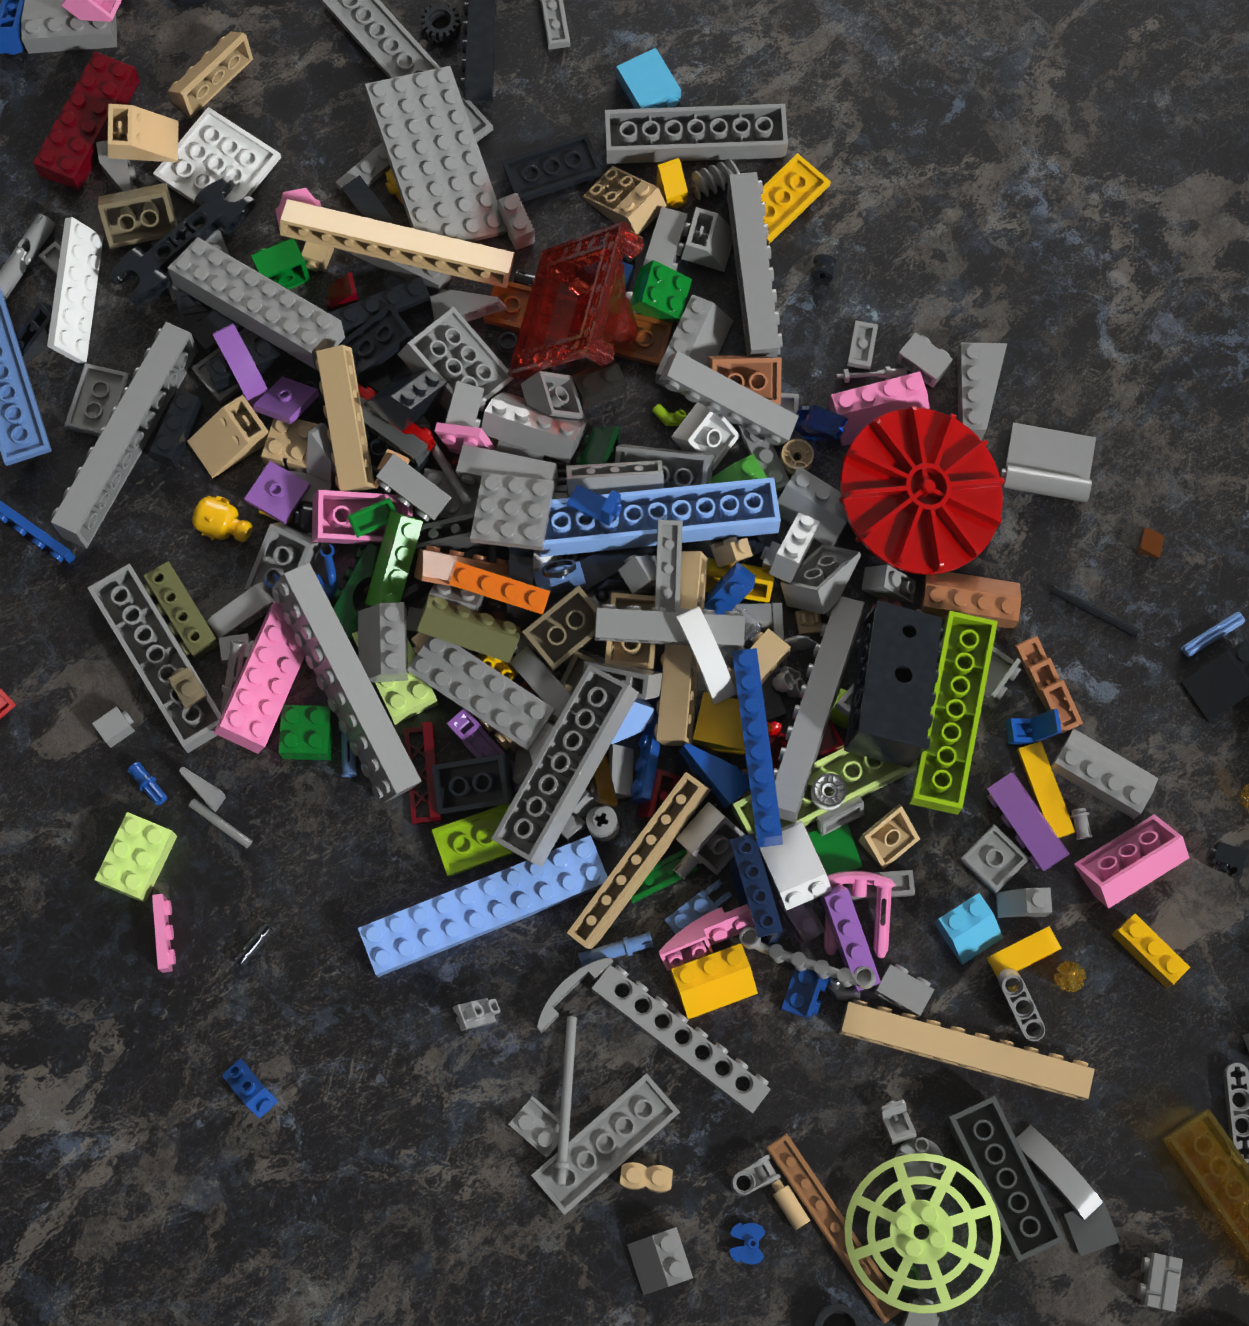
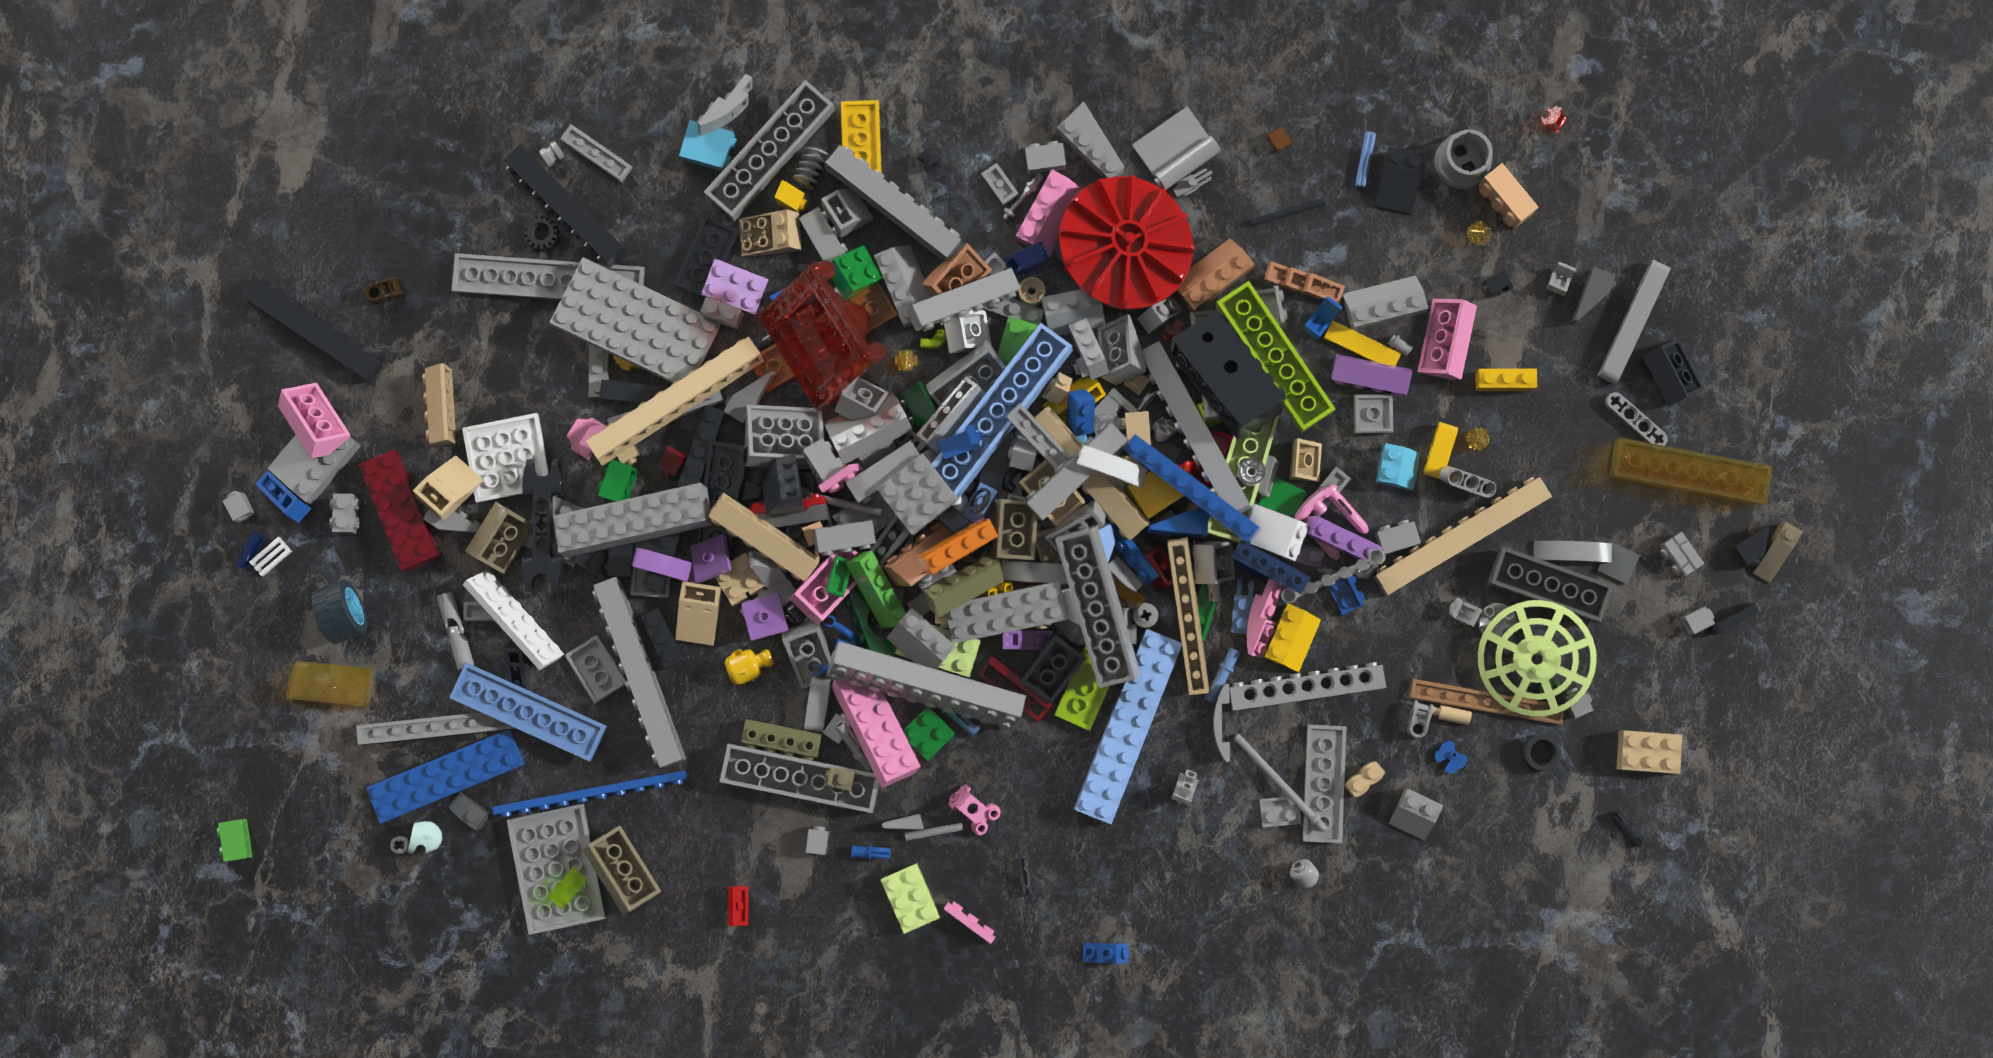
camera: 40 degrees left, 10 degrees up
(42, 81) = (345, 512): none -> light grey brick
(277, 848) = (962, 799): none -> bright pink piece
(500, 1206) = (1304, 873): none -> light grey head
(549, 211) = (734, 286): none -> lavender plate
(627, 407) = (906, 360): none -> clear yellow gear
(692, 67) = (725, 110): none -> light grey slope
(1024, 903) = (1413, 422): light grey slope -> none
(1031, 503) = (1190, 184): none -> light grey piece

